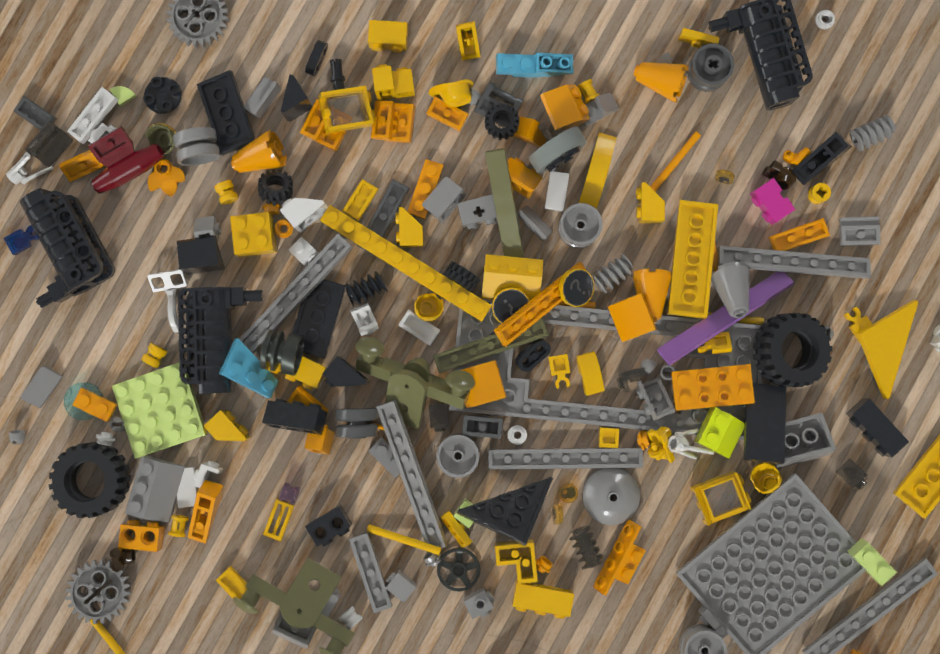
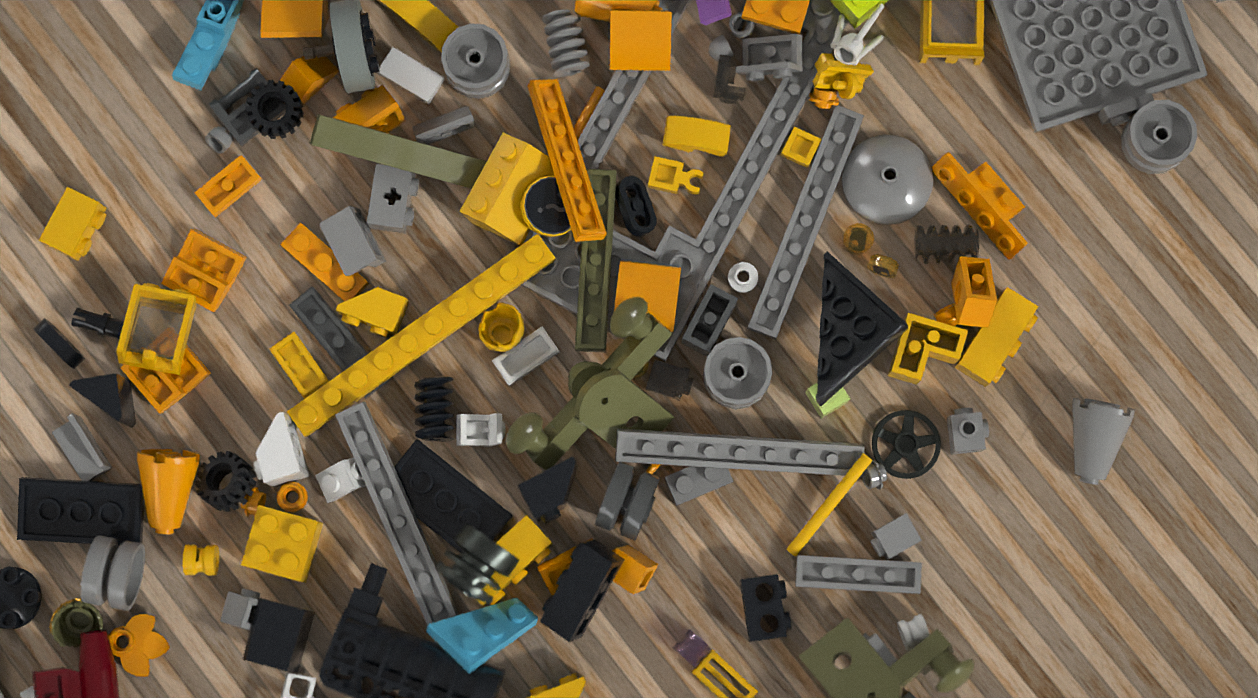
camera: 65 degrees left, 5 degrees down
(392, 84) = (148, 244): yellow brick -> none
(454, 93) = (202, 163): yellow piece -> none
(456, 529) = (844, 422): yellow plate -> none
(462, 276) = (476, 259): black tyre -> none
(467, 40) = (133, 112): yellow slope -> none
(562, 575) = (974, 291): none -> light orange brick
(576, 287) = (563, 102): black tile -> none

